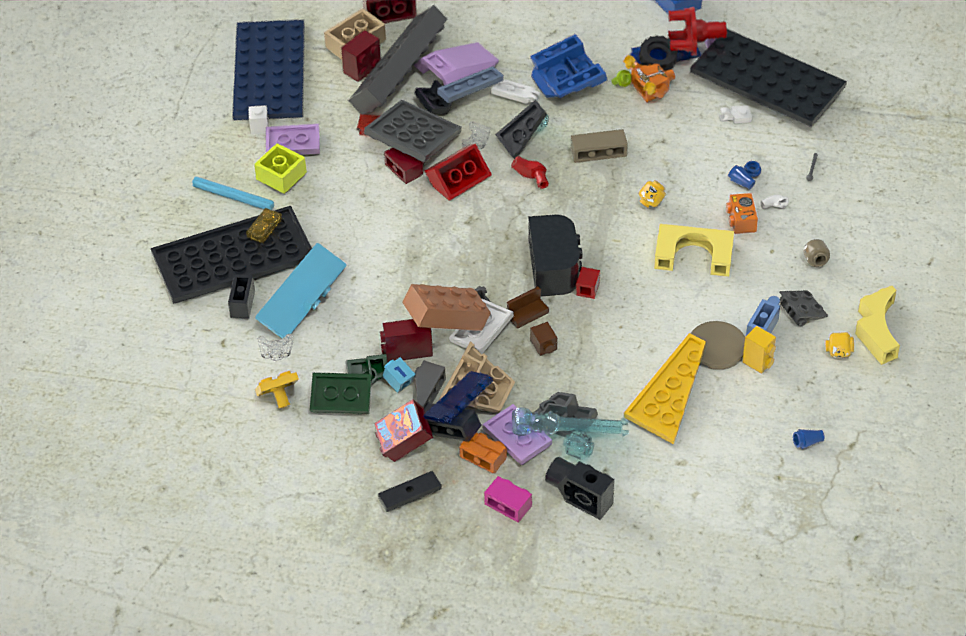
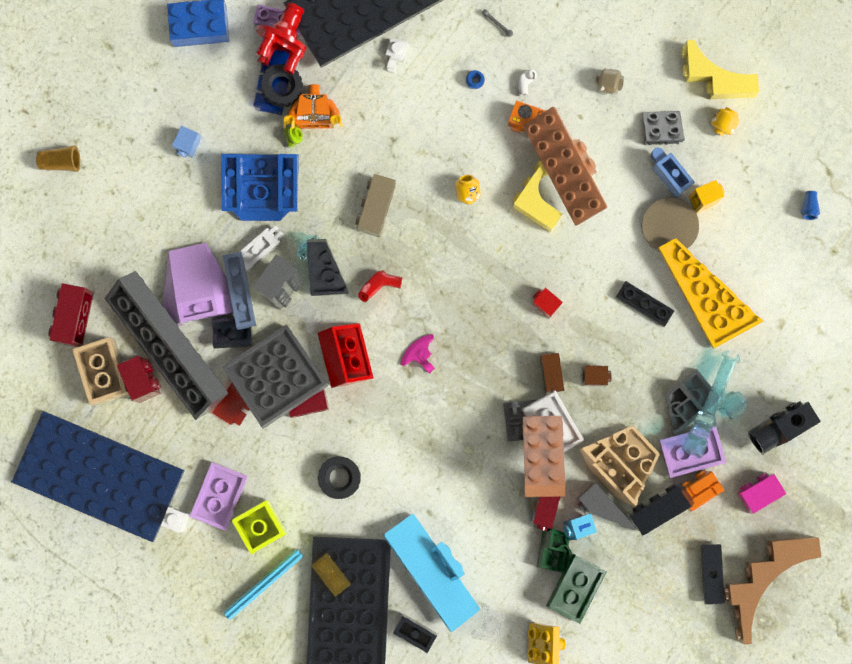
camera: 65 degrees left, 35 degrees up
(350, 217) = (339, 492): none -> black tyre
(403, 430) = (653, 553): brick -> none
(429, 527) = (761, 574): none -> medium nougat arch
(459, 397) = (644, 488): clear blue windscreen -> none
(489, 220) = (419, 352): none -> dark pink piece
(490, 93) = (278, 282): none -> dark grey brick
(554, 254) = (506, 319): black brick -> none
(572, 20) = (186, 142): none -> medium blue brick
(633, 354) = (634, 297): none -> black tile
(720, 238) = (566, 165): none -> nougat bracket
(741, 177) = (481, 95): blue cone -> none

